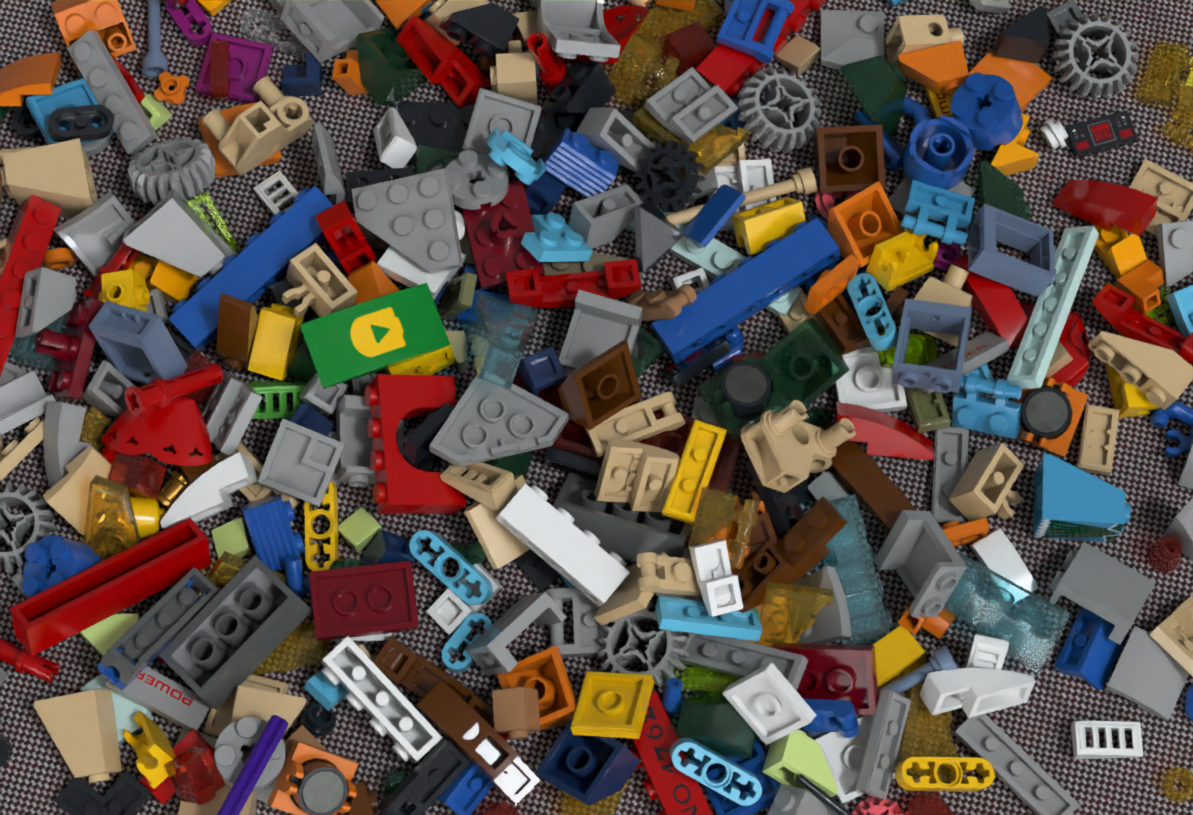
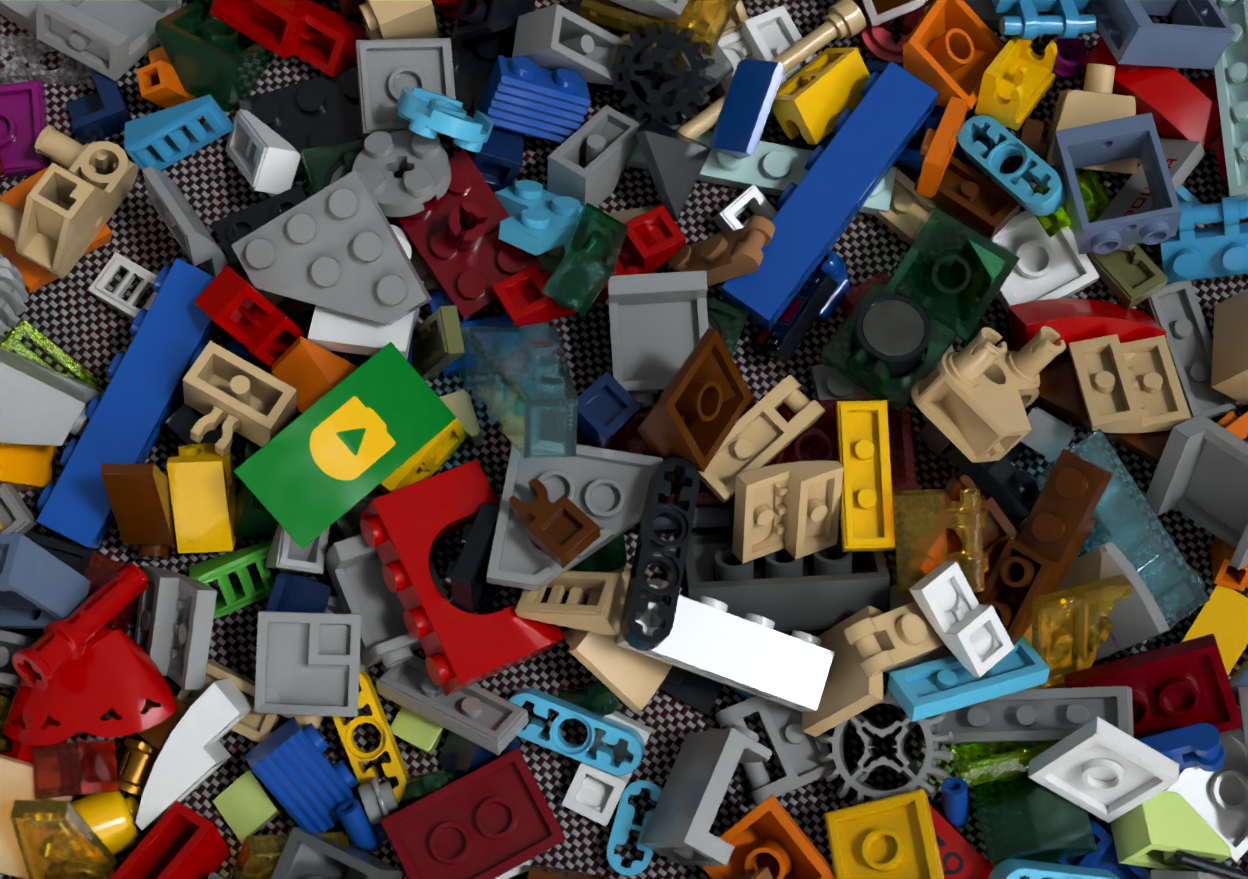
camera: 25 degrees left, 5 degrees up
(312, 562) = (378, 800): none -> light grey plate
(334, 110) = (148, 140): none -> dark azure slope
(388, 529) = (468, 712): none -> light grey tile
(483, 429) = (556, 528): none -> reddish brown plate
(543, 469) = (666, 554): none -> black beam
(569, 275) = (585, 260): none -> clear green slope
(890, 476) = (1129, 384): none -> tan slope

